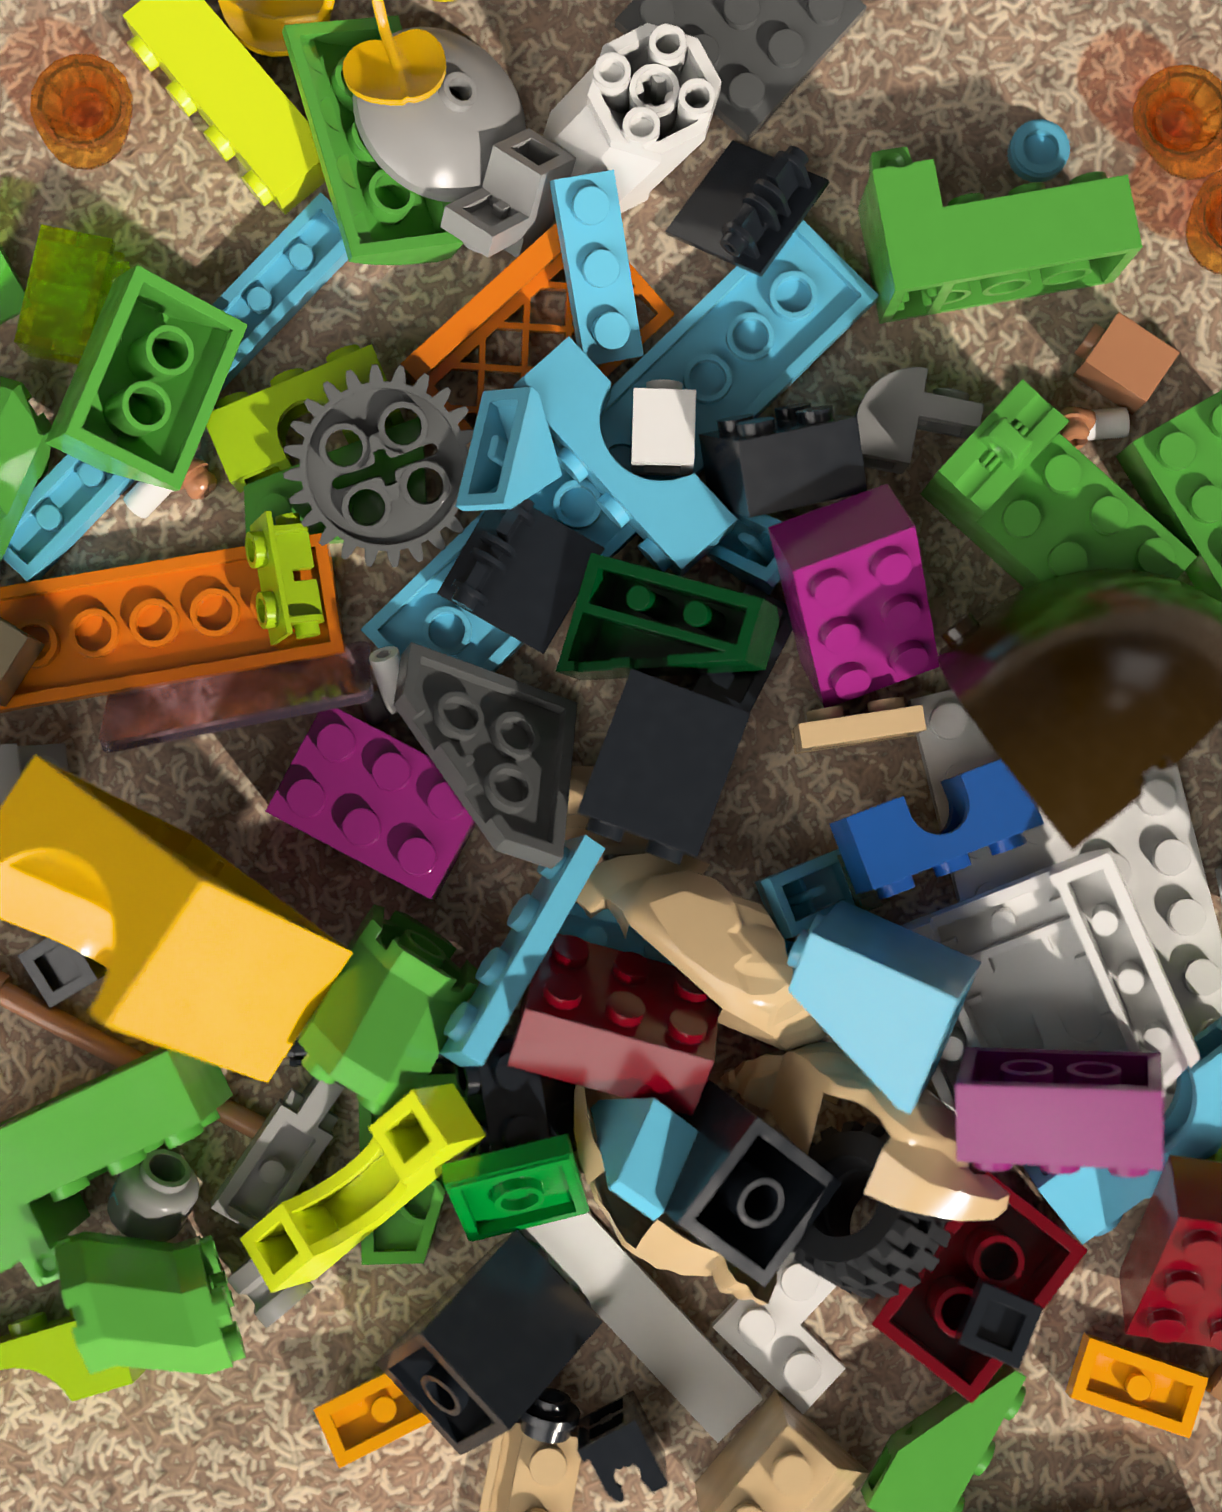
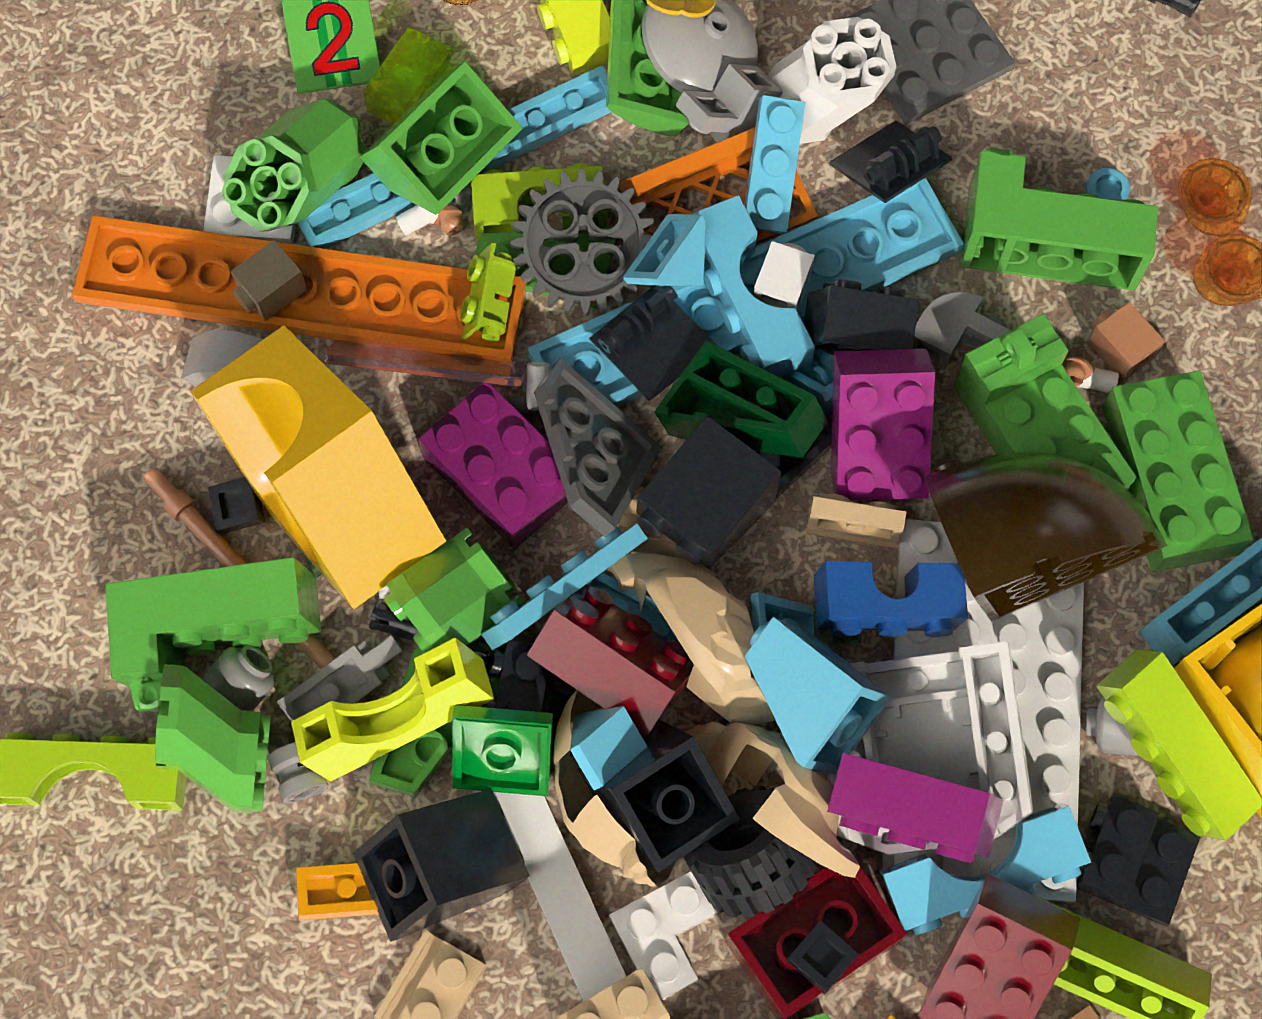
camera: 20 degrees right, 15 degrees down
(551, 1417) = (465, 936): black plate -> none
(622, 1437) = (510, 958): black hinge -> none

